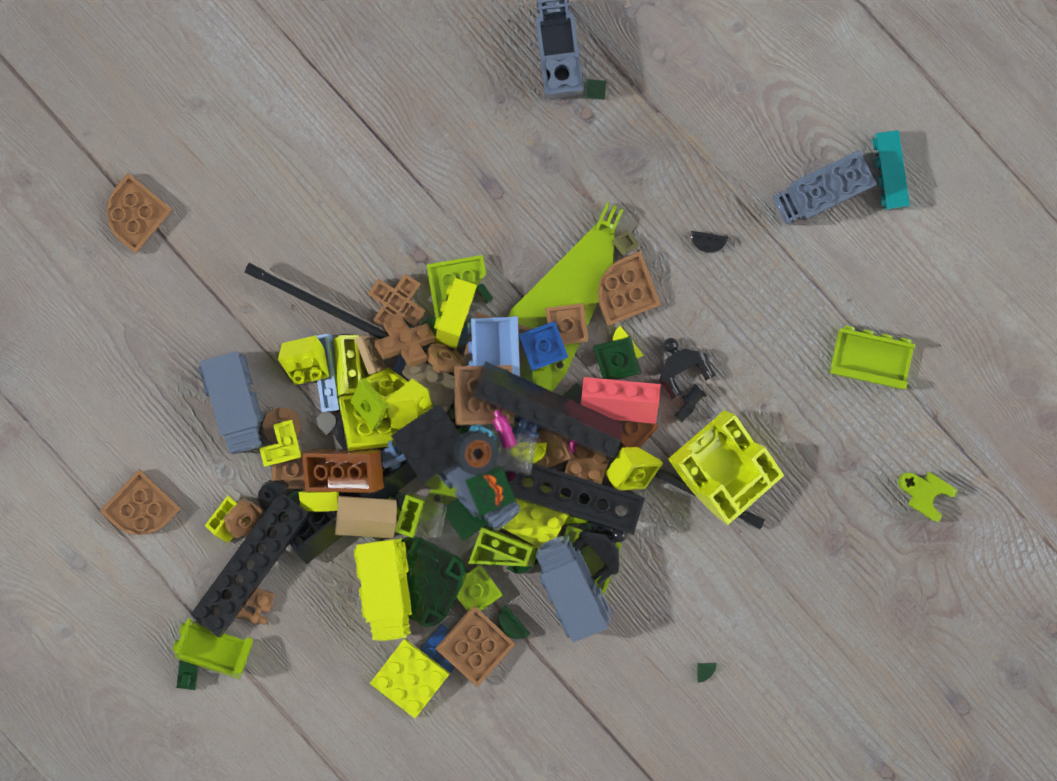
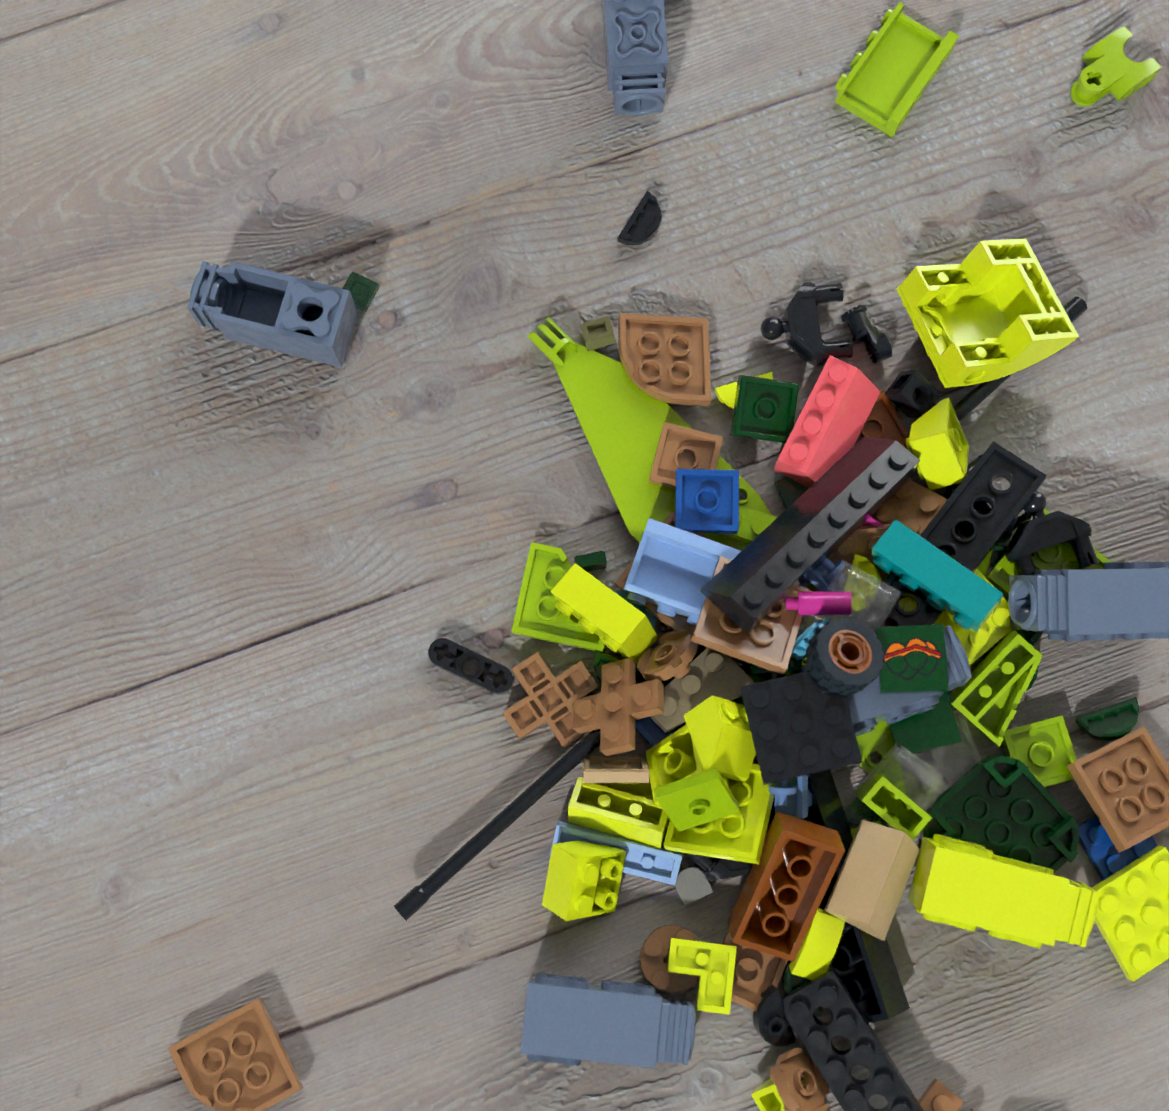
camera: 75 degrees left, 10 degrees down
(404, 235) = (453, 649): none -> black beam
(547, 489) = (936, 576): none -> teal brick
(664, 436) = (902, 393): none -> black brick

